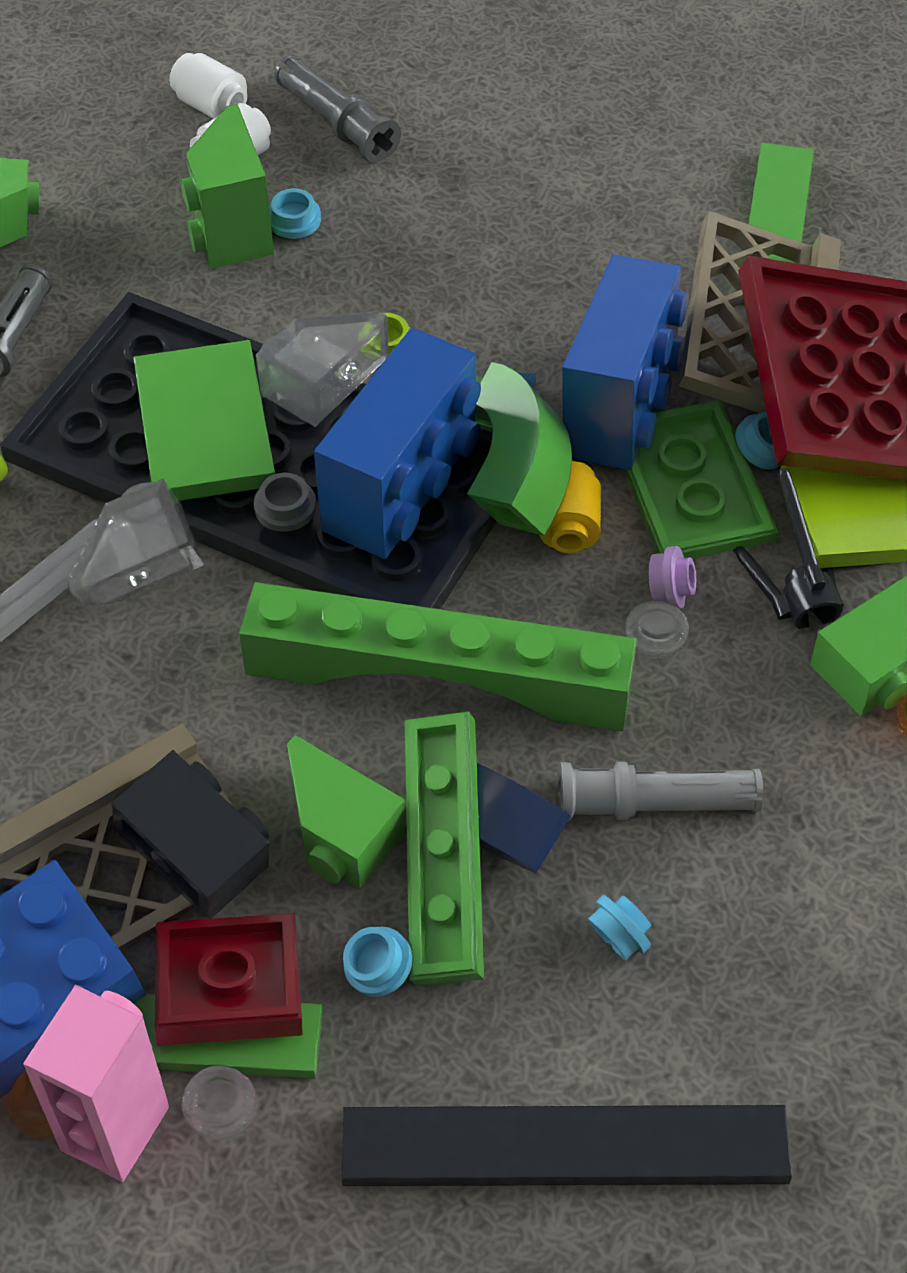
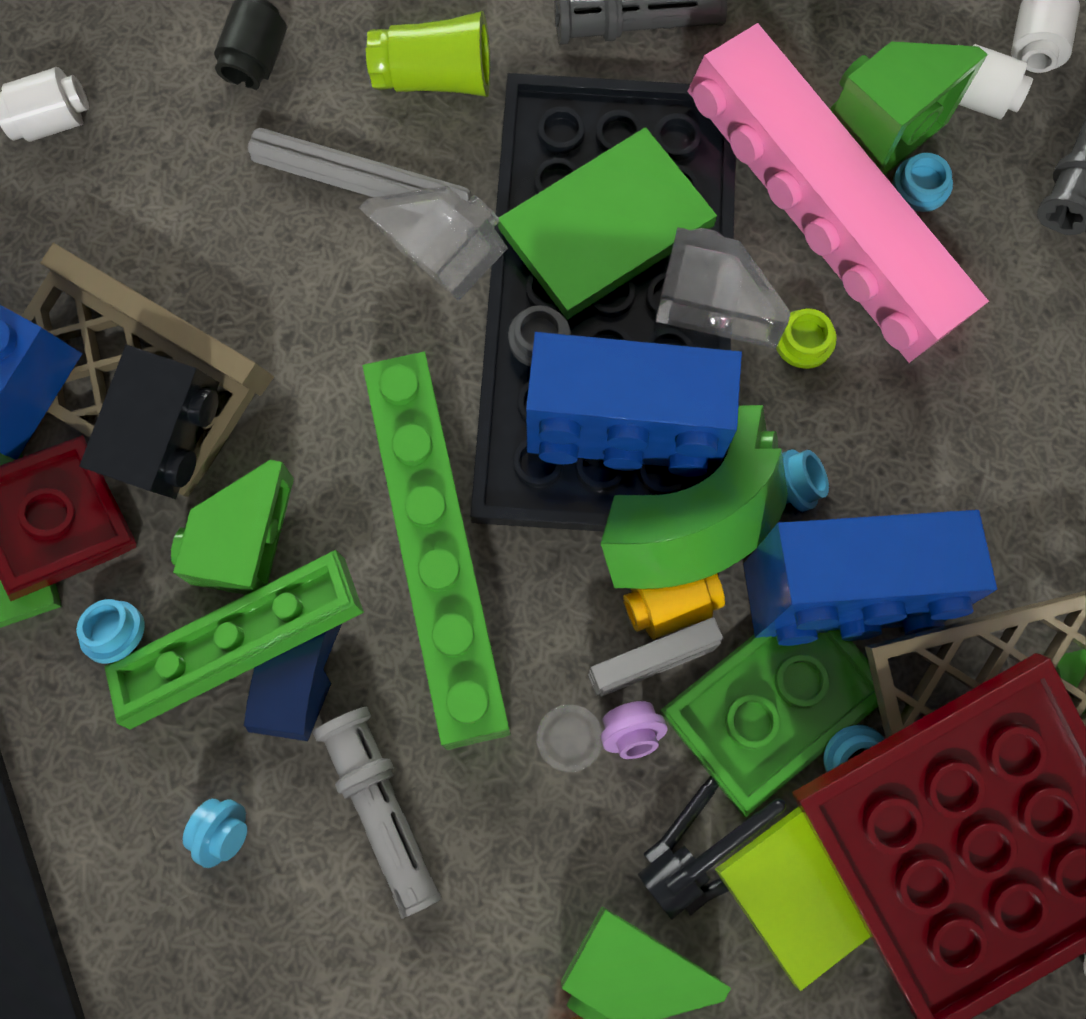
camera: 65 degrees right, 20 degrees up
(273, 262) = (834, 193): none -> bright pink brick
(617, 538) = (655, 657): none -> light grey tile

